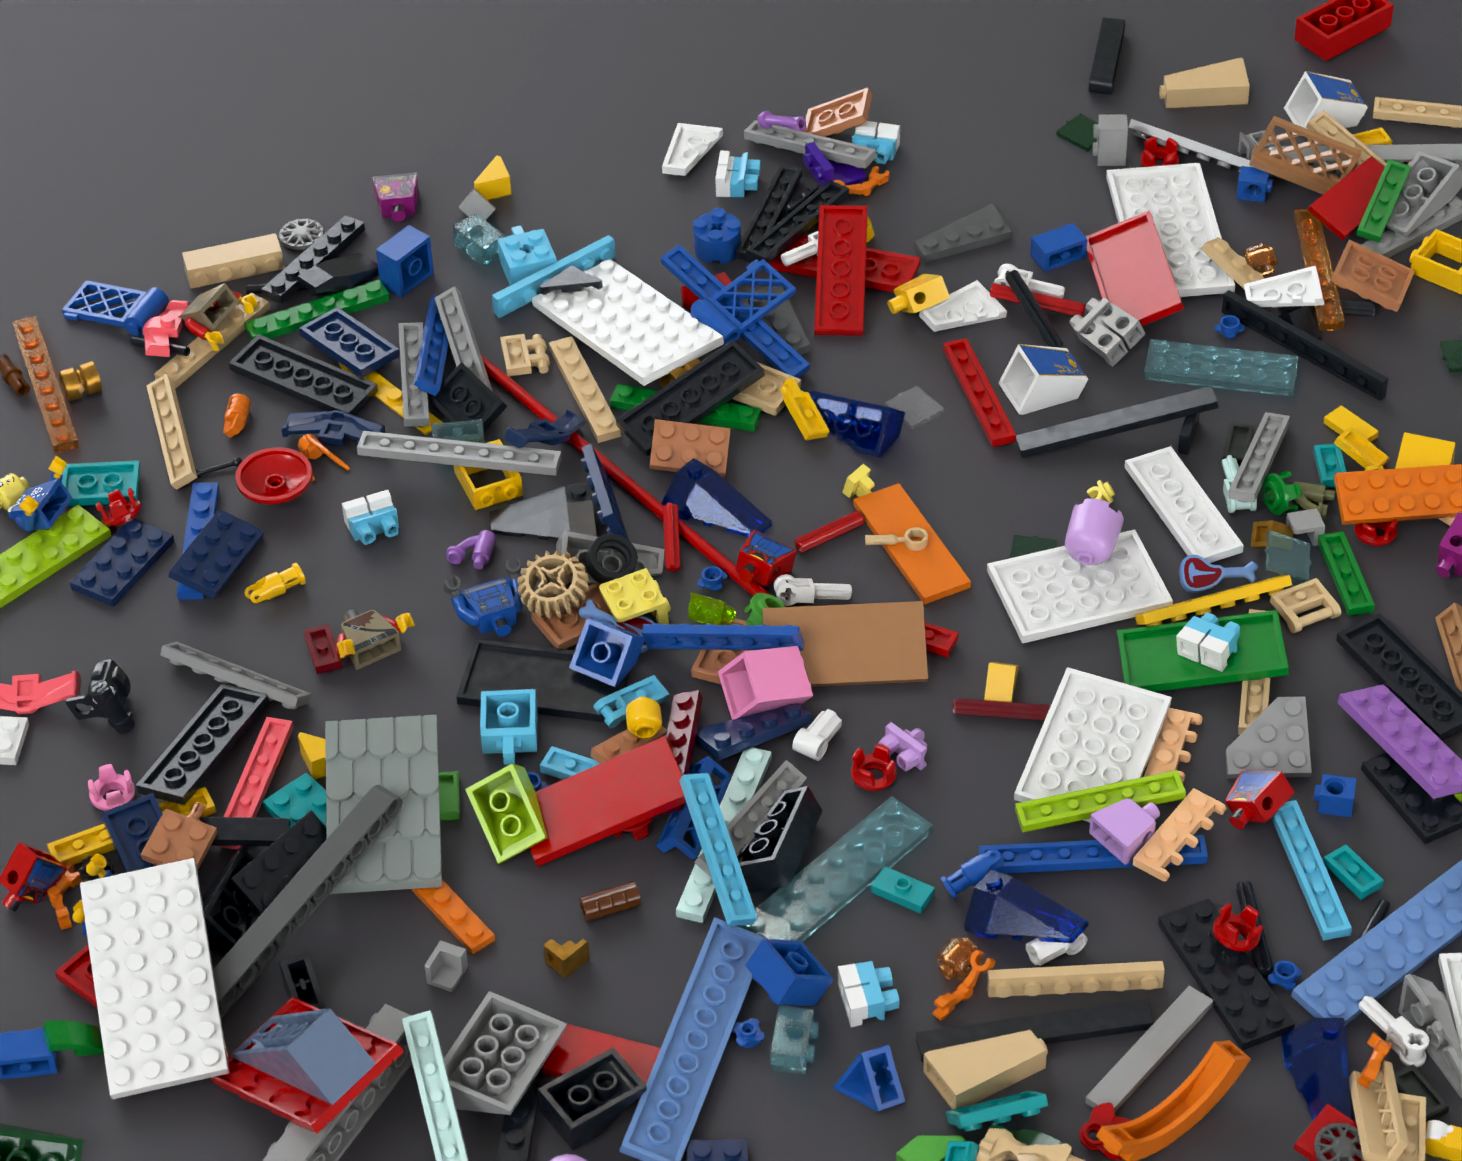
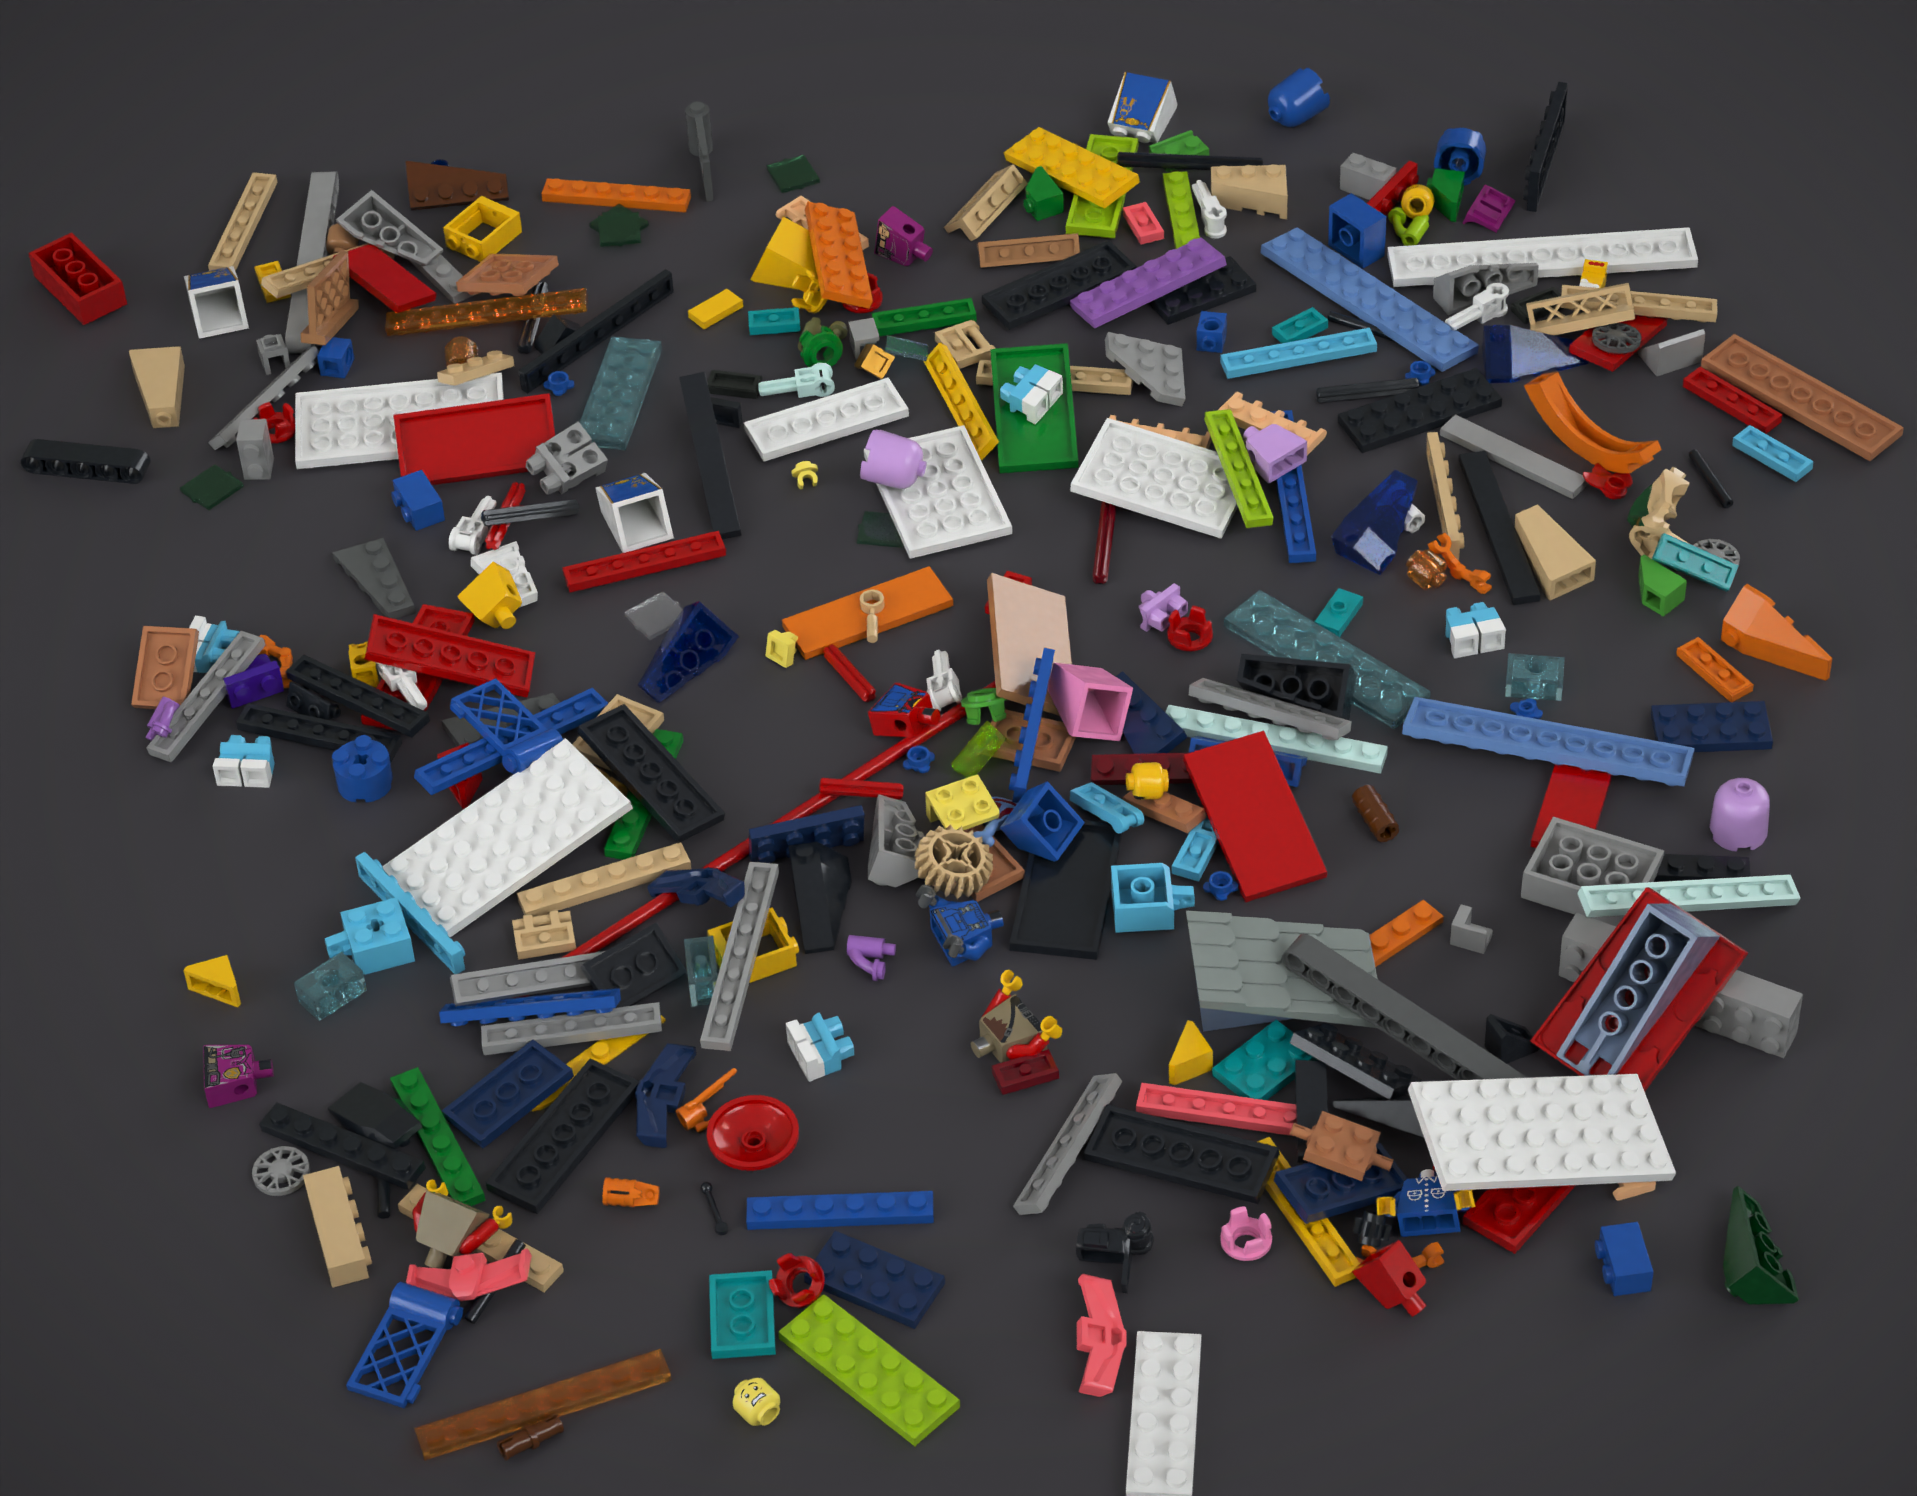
camera: 90 degrees left, 0 degrees up
(44, 503) = (794, 1353): blue torso -> none
(73, 1035) = (1607, 1214): green slope -> none
(80, 381) = (557, 1353): pearl gold wheel -> none
(171, 431) = (654, 1251): tan plate -> none
(216, 554) = (877, 1178): dark blue plate -> none
(275, 584) = (920, 1121): yellow piece -> none
(405, 261) = (376, 1041): blue brick -> none
(477, 204) = (264, 994): light grey panel -> none
(508, 811) = (1272, 886): lime slope -> none
(566, 958) = (1448, 842): pearl gold panel -> none
(570, 280) = (433, 886): tile -> none
(590, 1097) = (1631, 802): black slope -> none
(615, 542) = (910, 820): black tyre -> none
(680, 442) = (725, 776): nougat plate -> none
(688, 147) = (178, 807): white wing -> none
(711, 499) = (796, 765): clear blue wedge -> none
(718, 849) = (1328, 711): medium azure plate -> none
(789, 972) = (1469, 669): blue brick -> none
(803, 411) = (668, 689): yellow hinge -> none
(814, 740) = (1153, 674): white piece -> none
(873, 1080) = (1573, 623): blue slope -> none
(972, 872) = (1328, 555): blue piece -> none
(997, 1110) = (1605, 536): teal plate -> none
(1001, 681) = (1067, 544): yellow slope -> none
(1200, 576) = (924, 407): medium blue piece -> none
(1228, 926) = (1394, 383): red piece -> none
(1257, 796) = (1223, 373): red torso -> none
(1259, 457) = (772, 357): light grey plate -> none
(1287, 289) = (530, 325): white wing -> none
(1360, 449) = (756, 298): yellow tile -> none
(1380, 1050) = (1519, 306): orange piece -> none
(1383, 201) = (400, 254): green plate -> none

